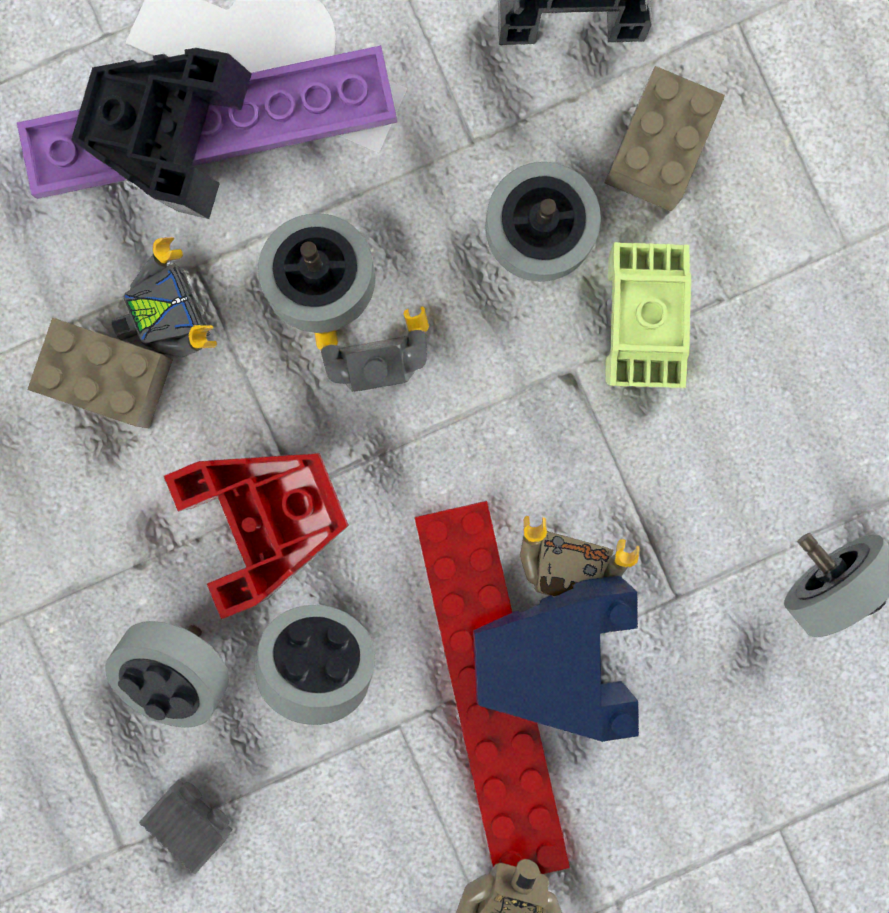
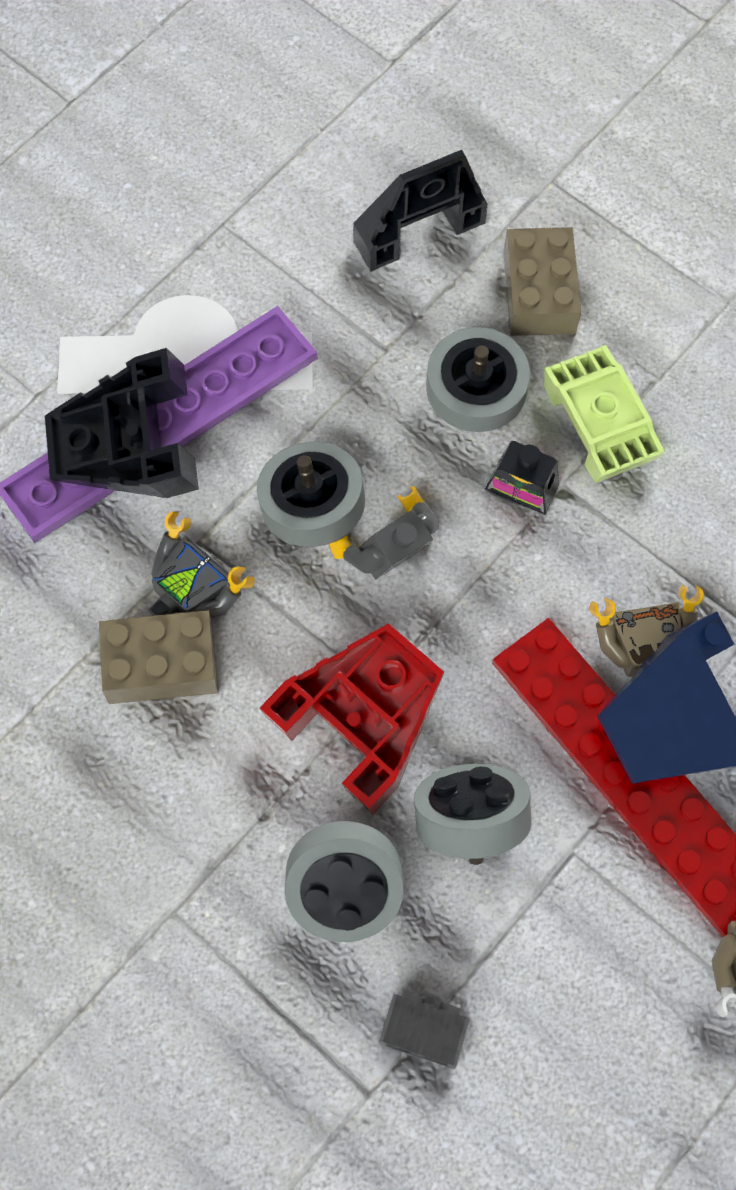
camera: 20 degrees left, 20 degrees down
(535, 350) = (525, 477): none -> black torso

